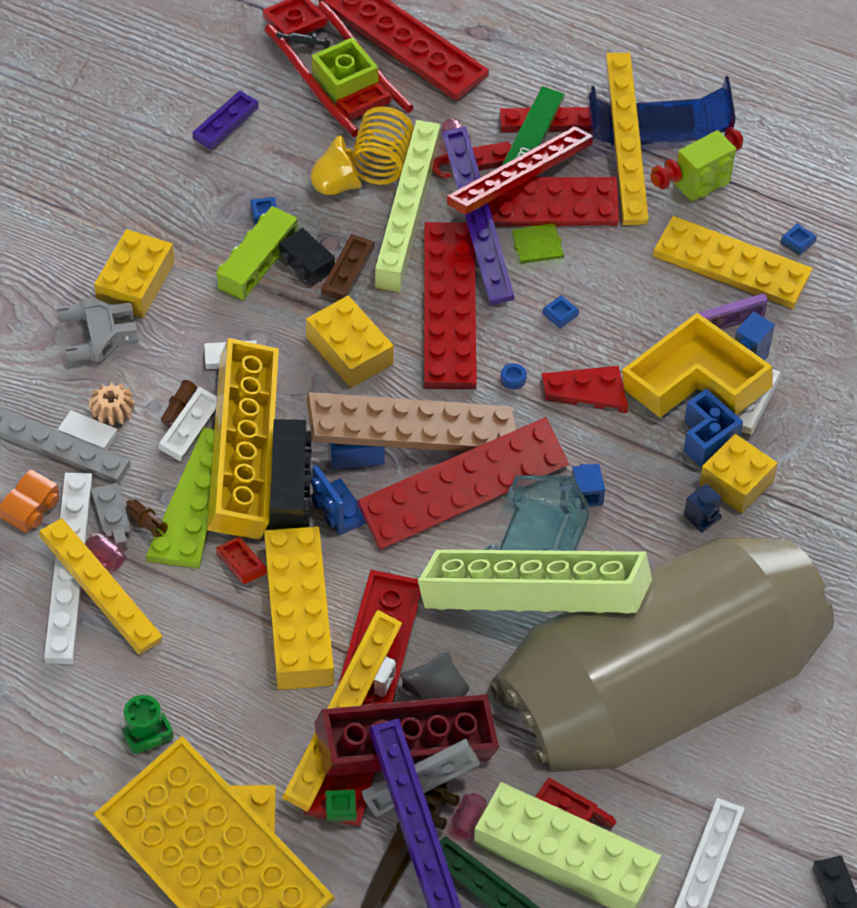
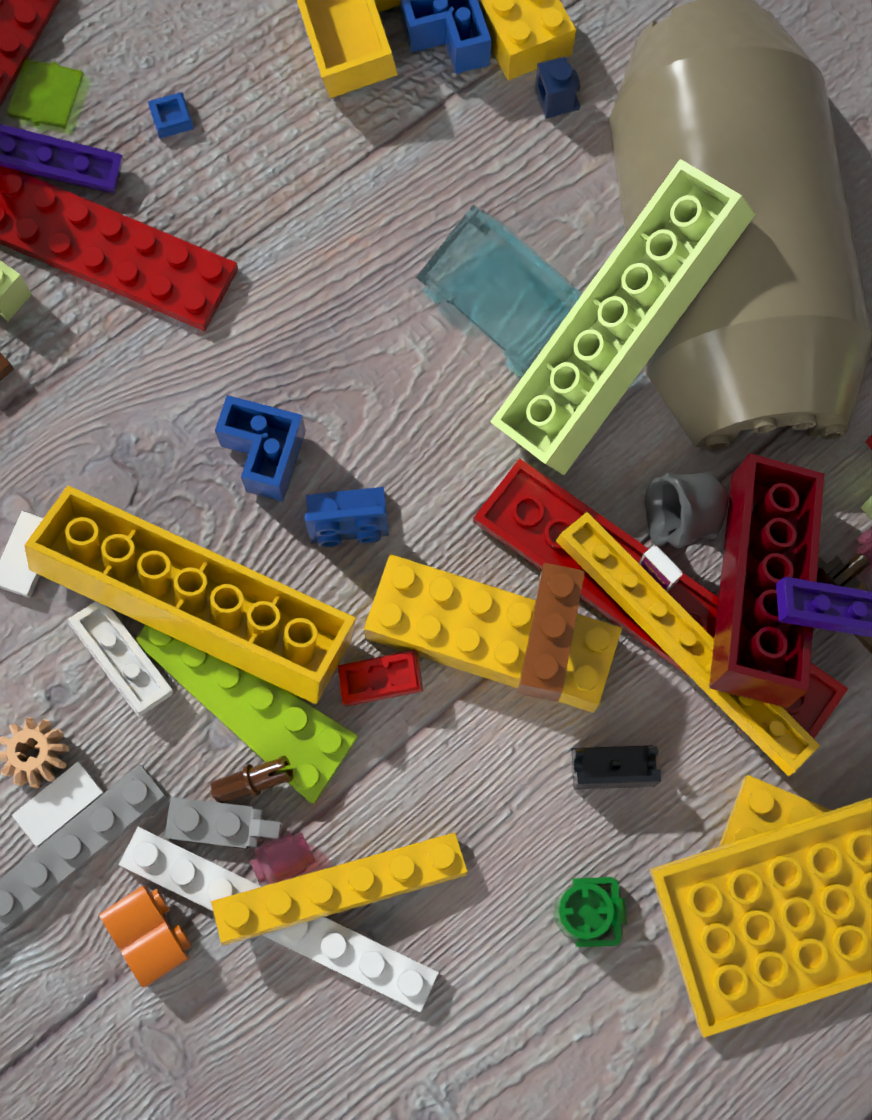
camera: 65 degrees left, 20 degrees up
(178, 402) = (75, 658): reddish brown axle -> none
(244, 708) = (615, 767): none -> black hinge
(285, 618) = (551, 632): none -> dark orange arch
(290, 474) = (290, 556): black brick -> none
(340, 805) = (822, 705): green tile -> none
(349, 341) = (90, 389): yellow brick -> none
(405, 422) = (278, 372): medium nougat plate -> none
(430, 772) = (833, 571): light grey plate -> none
(460, 483) = (390, 349): red plate -> none
(513, 376) = (244, 215): blue tile -> none
(590, 483) = (457, 196): blue brick -> none
(591, 386) = (305, 136): red wing -> none

